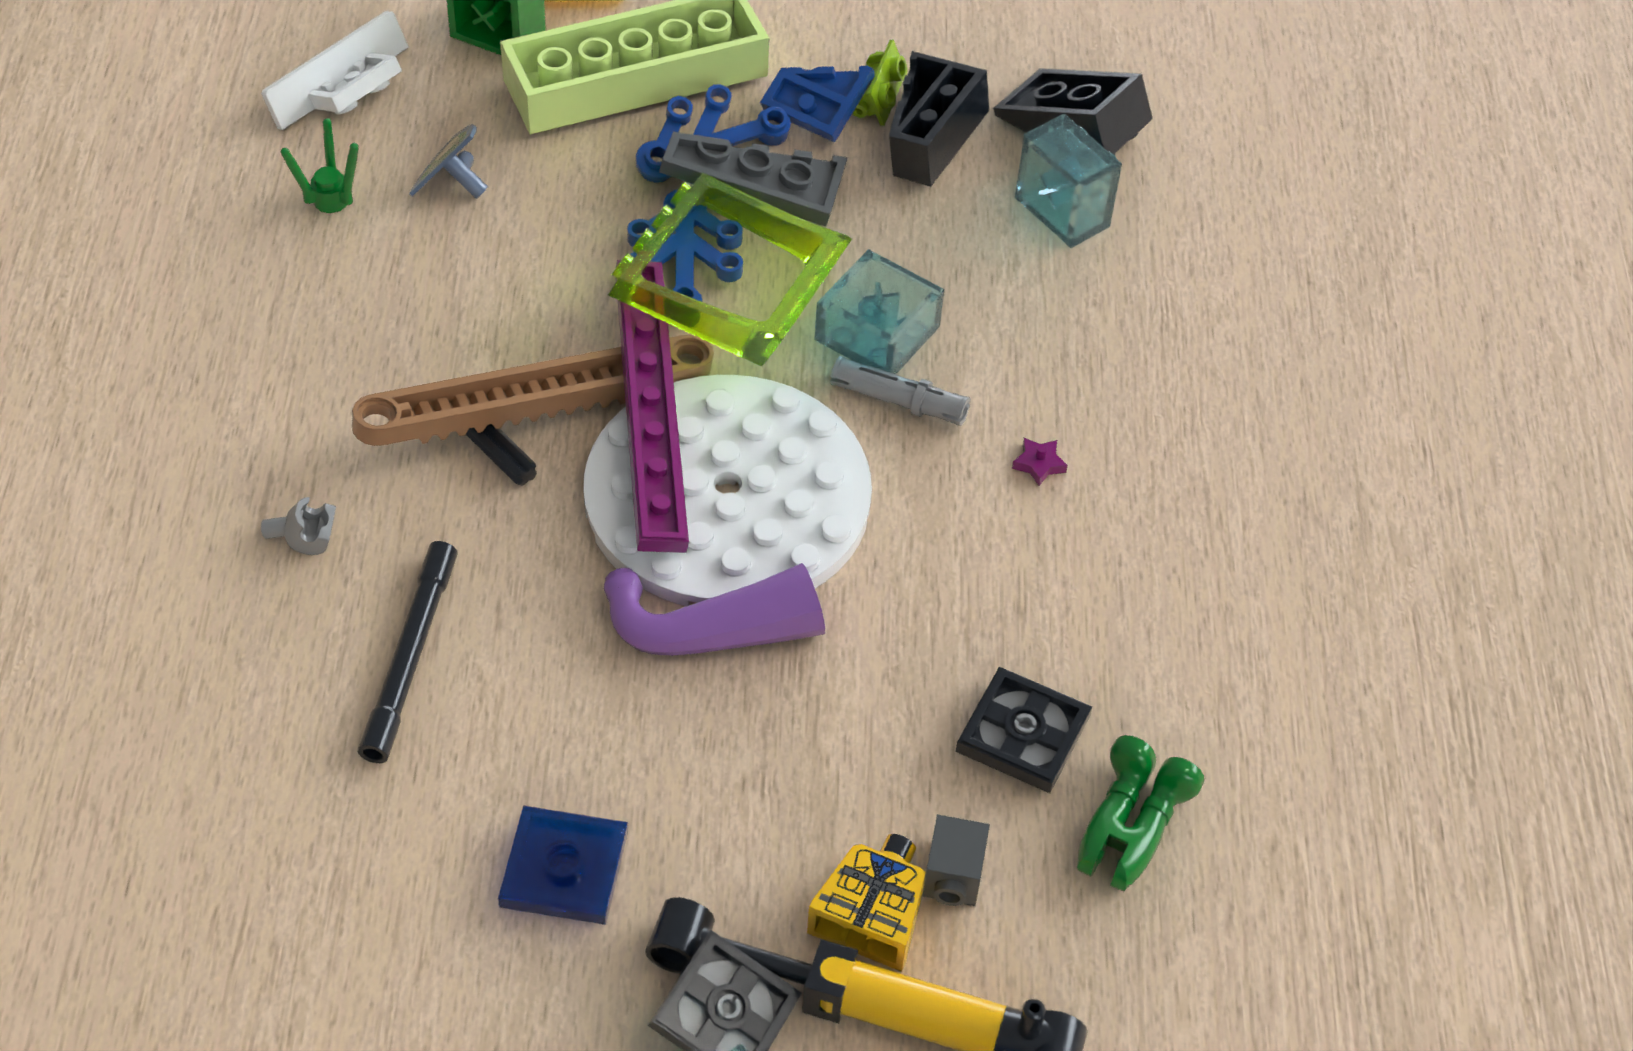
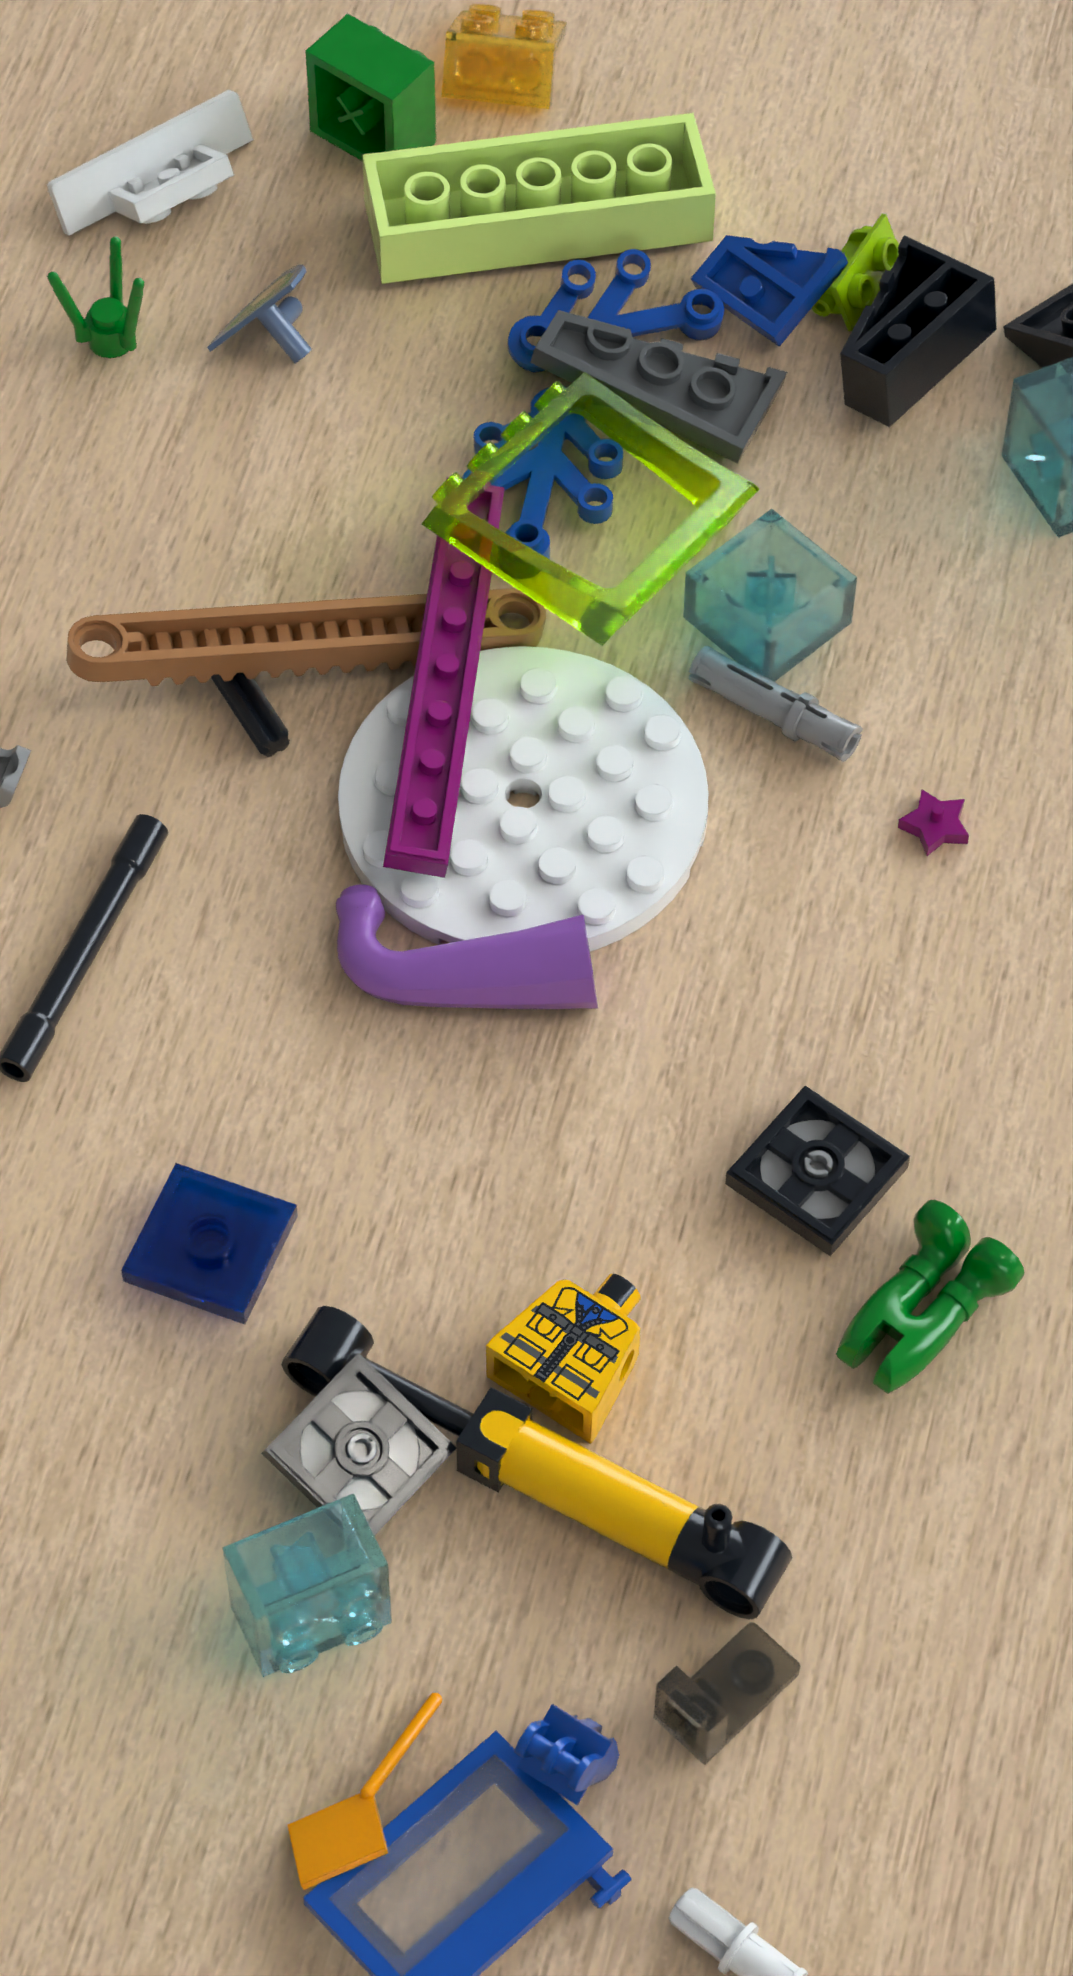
camera: 15 degrees right, 5 degrees up
(956, 861) = (686, 1320): dark grey brick -> none

